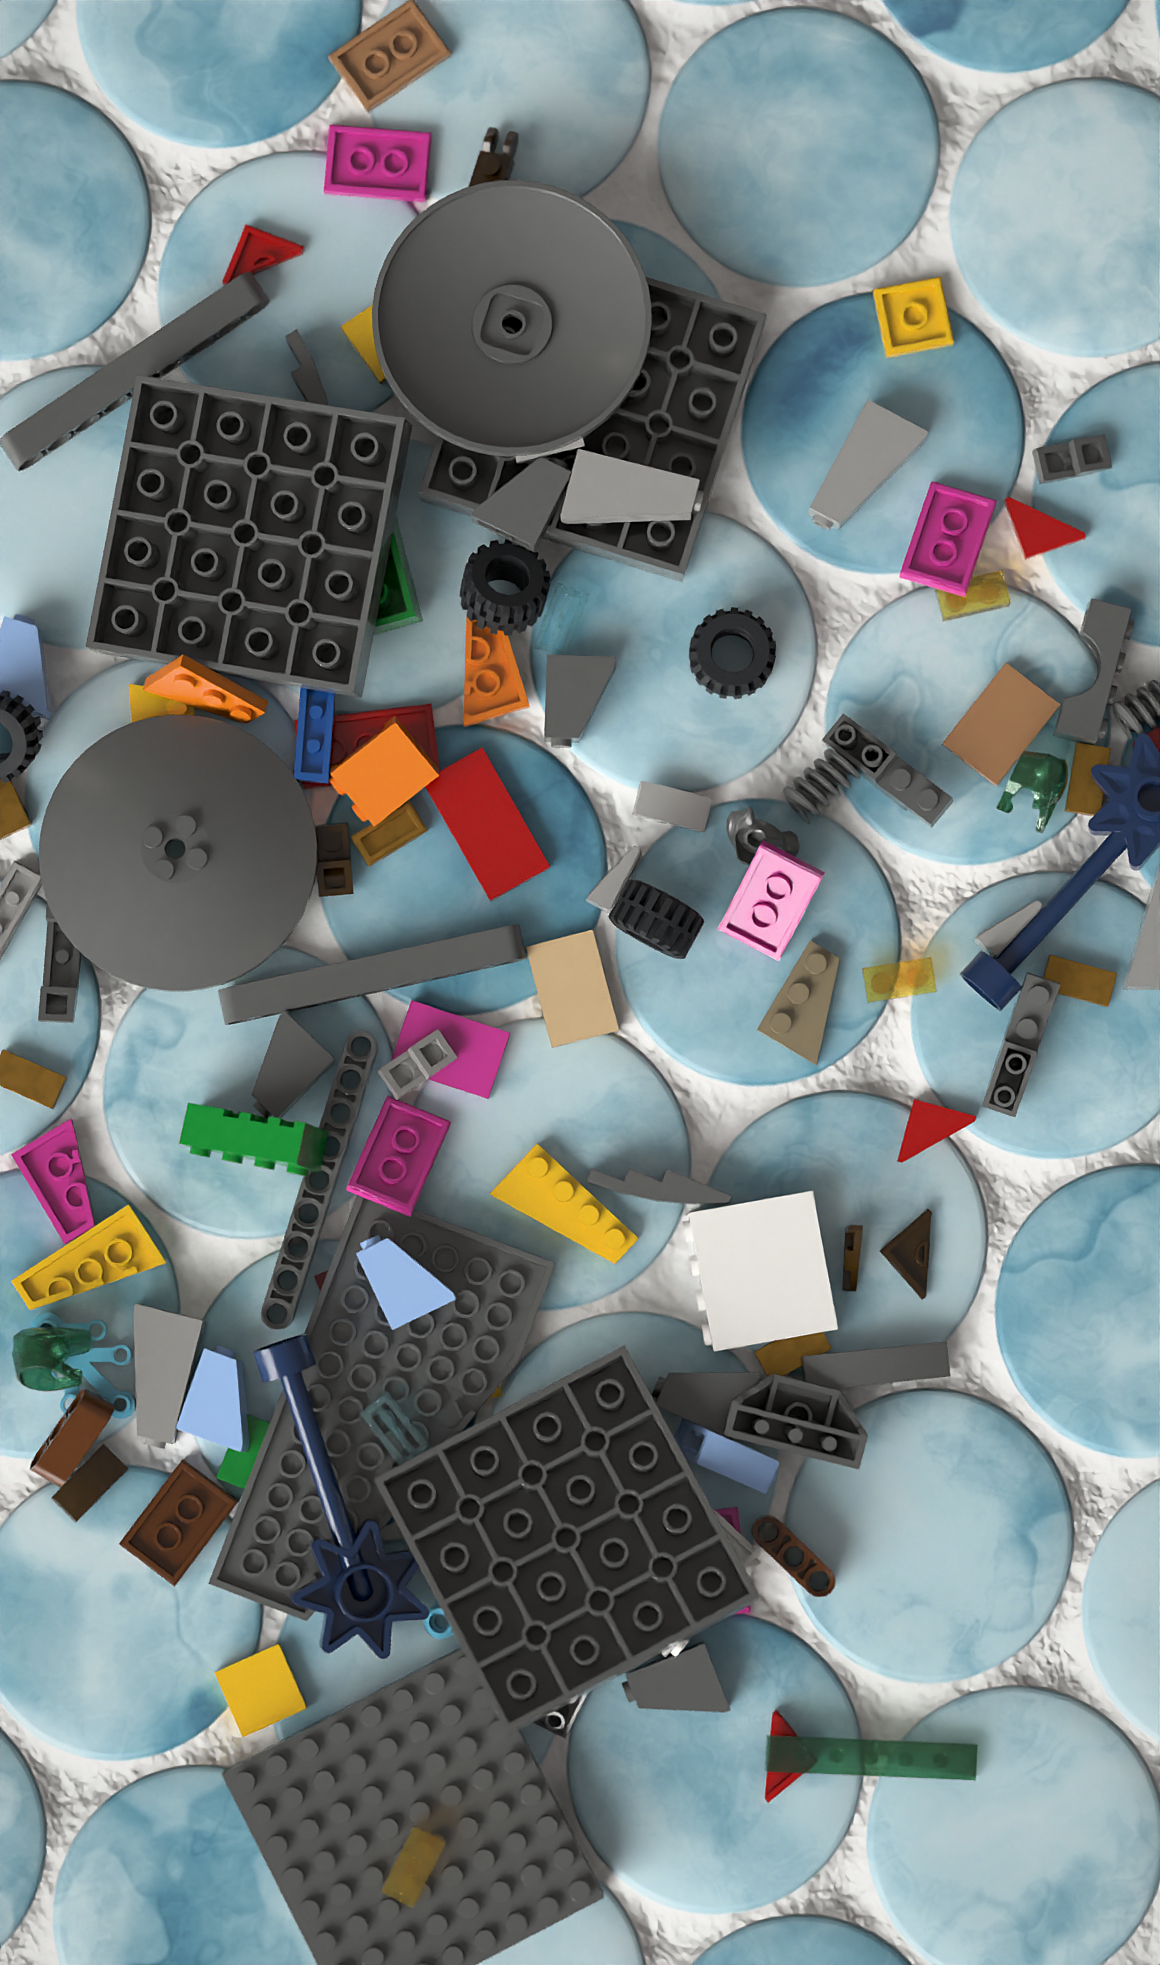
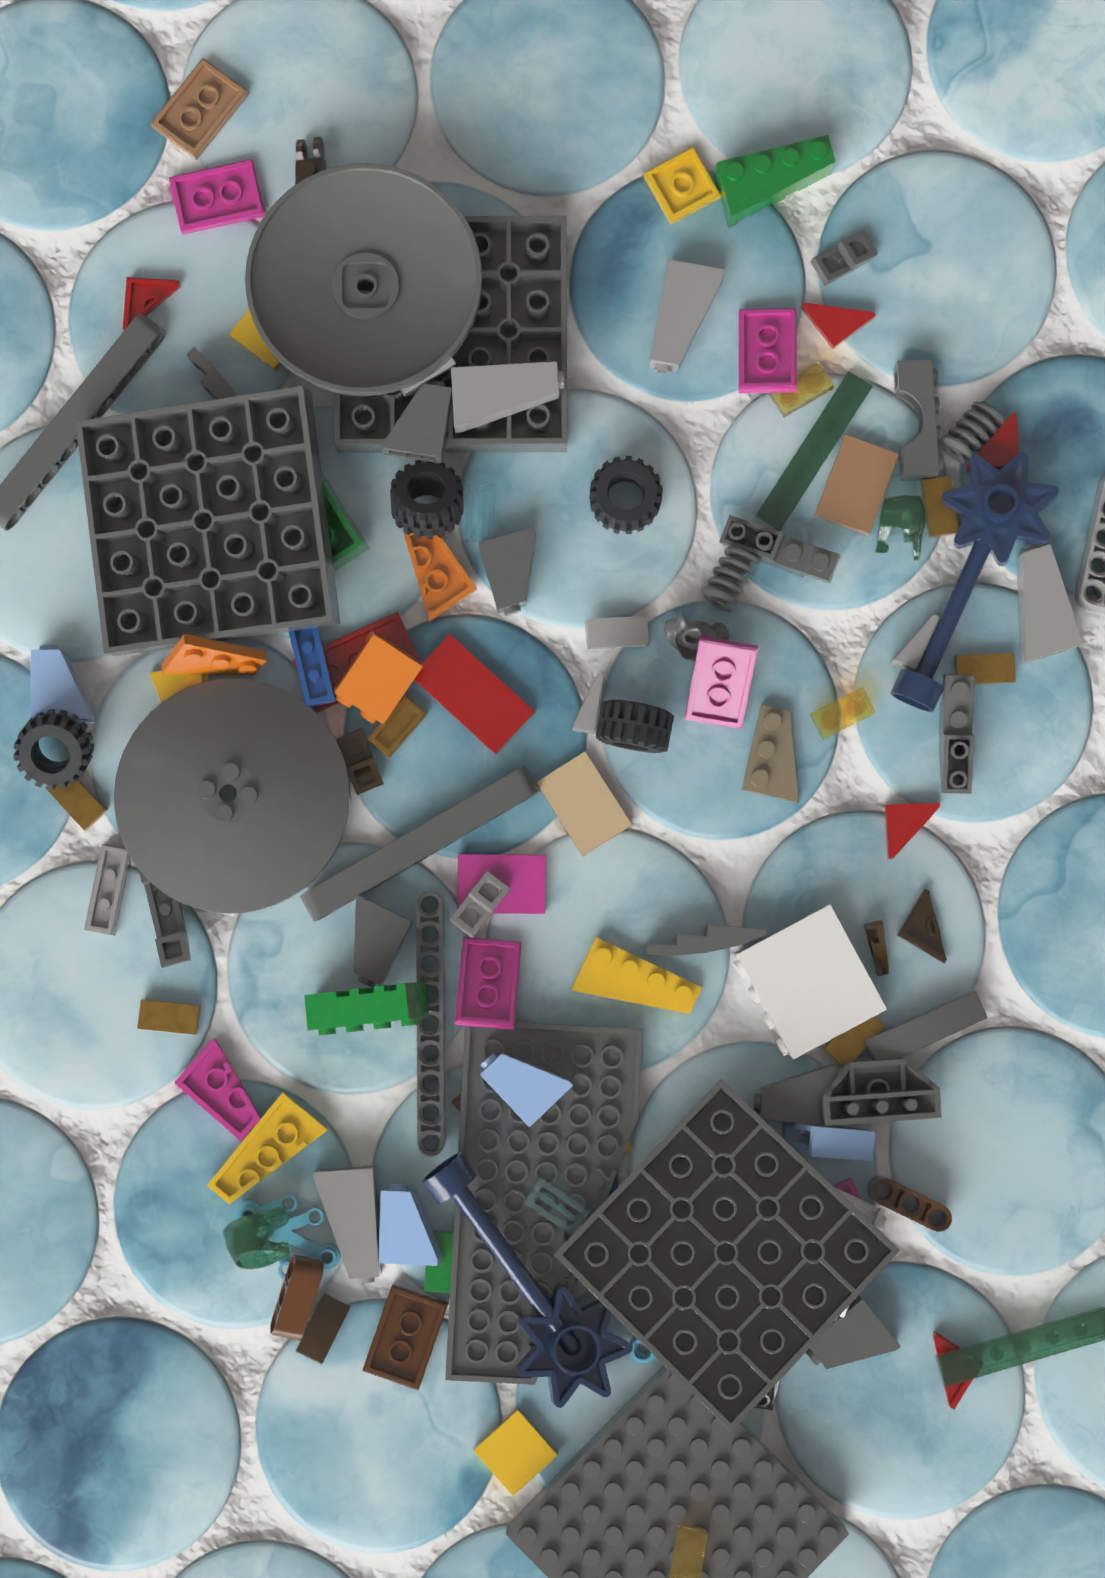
camera: 20 degrees left, 0 degrees up
(965, 670) = (814, 451): none -> clear green tile
(1016, 339) = (771, 175): none -> green wedge

